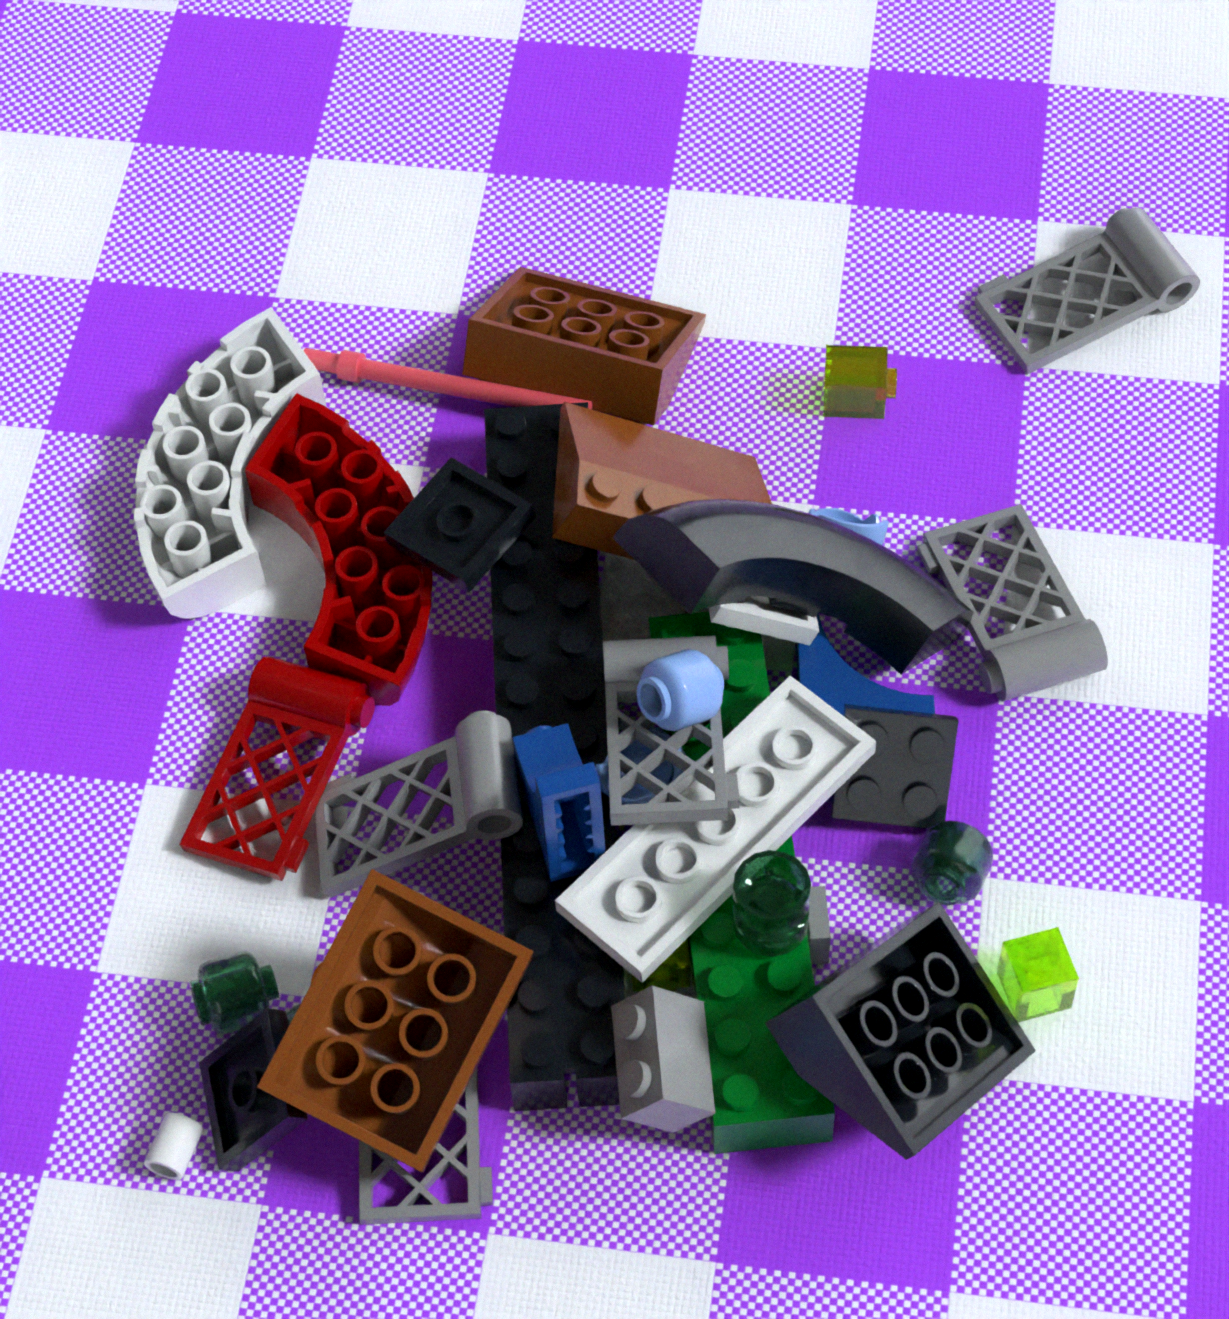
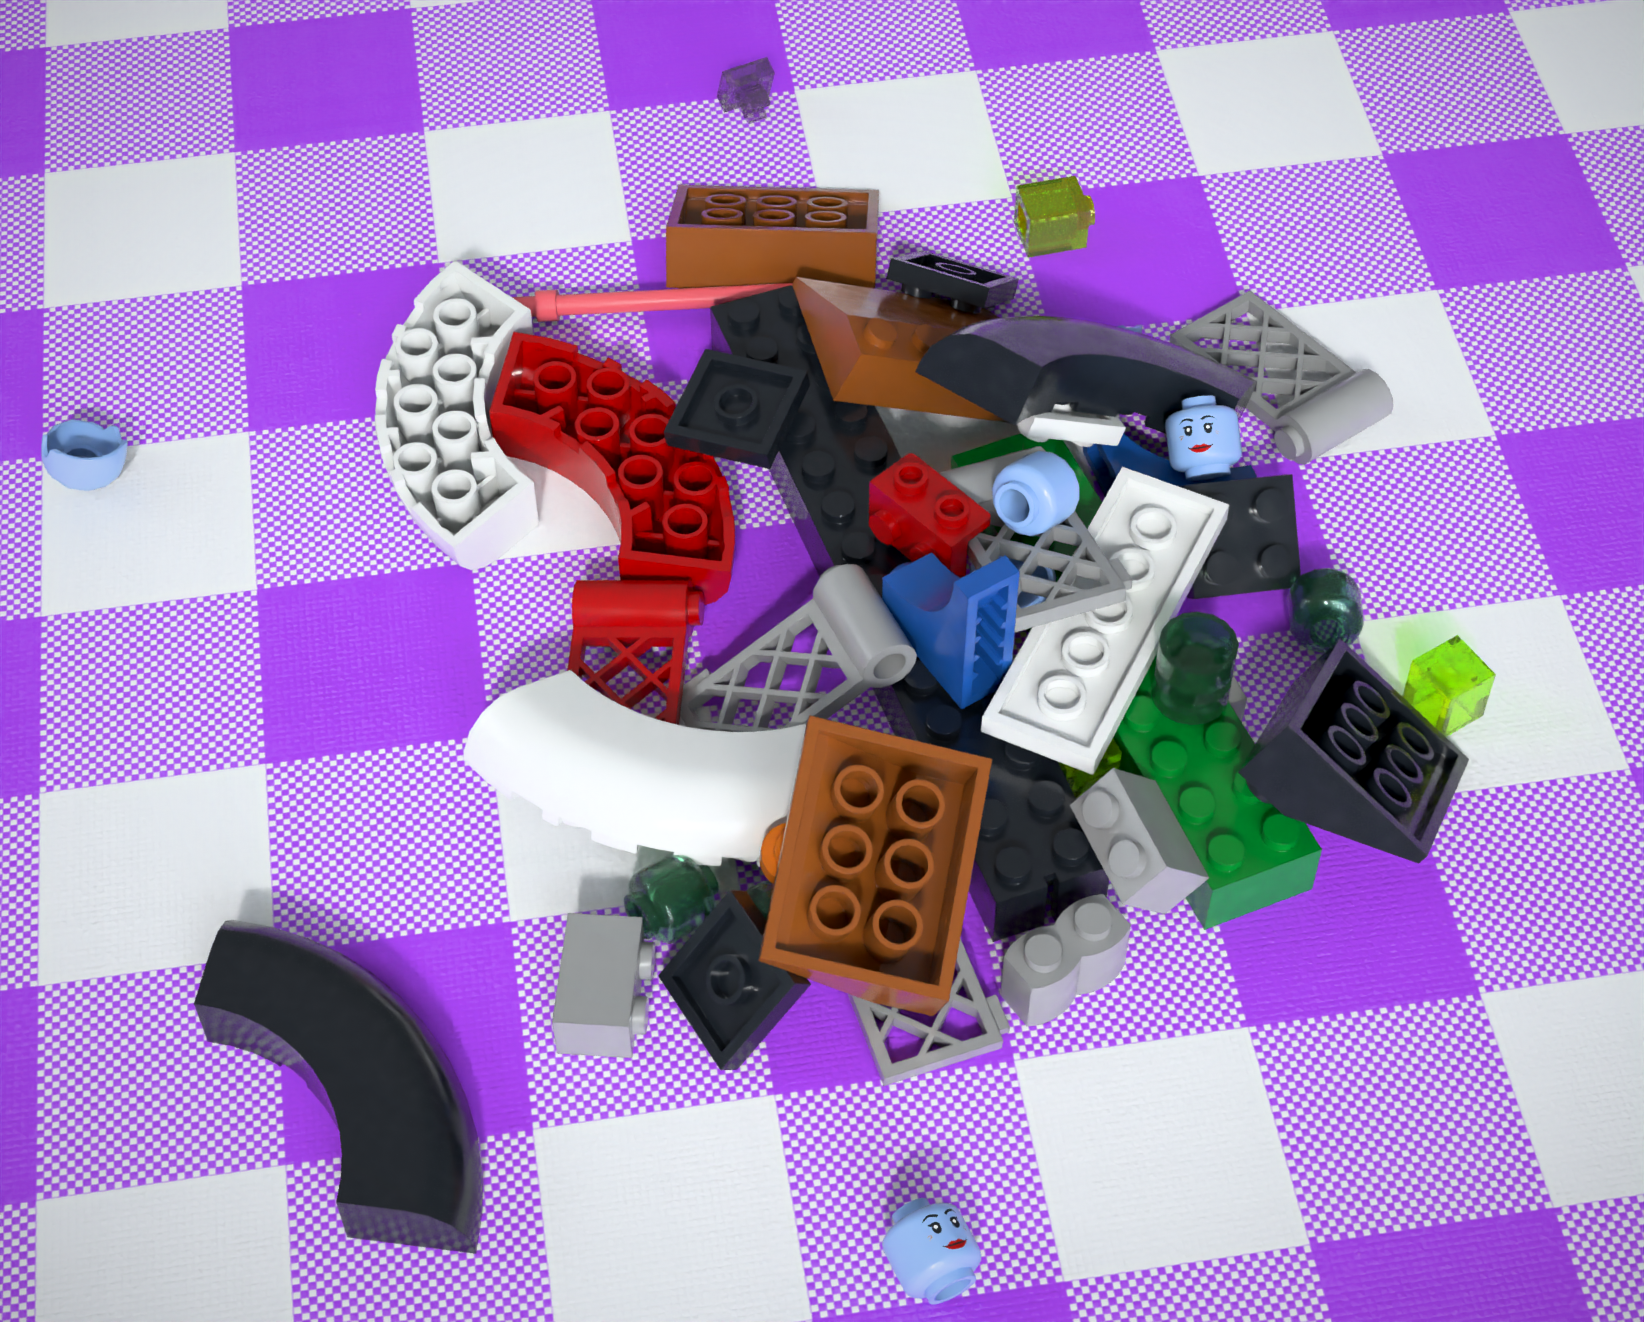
camera: 20 degrees left, 5 degrees down
(142, 1060) = (600, 985): none -> light grey brick
(173, 1146) = (665, 1059): white hinge -> none
(233, 869) = (635, 774): none -> white brick
(549, 1155) = (1065, 960): none -> light grey brick
(582, 682) = (924, 513): none -> red bracket
(618, 180) = (747, 88): none -> clear purple tile
(728, 430) = (964, 283): none -> black plate
(885, 662) = (1203, 439): none -> light blue head
(1135, 251) = (1269, 63): light grey piece -> none

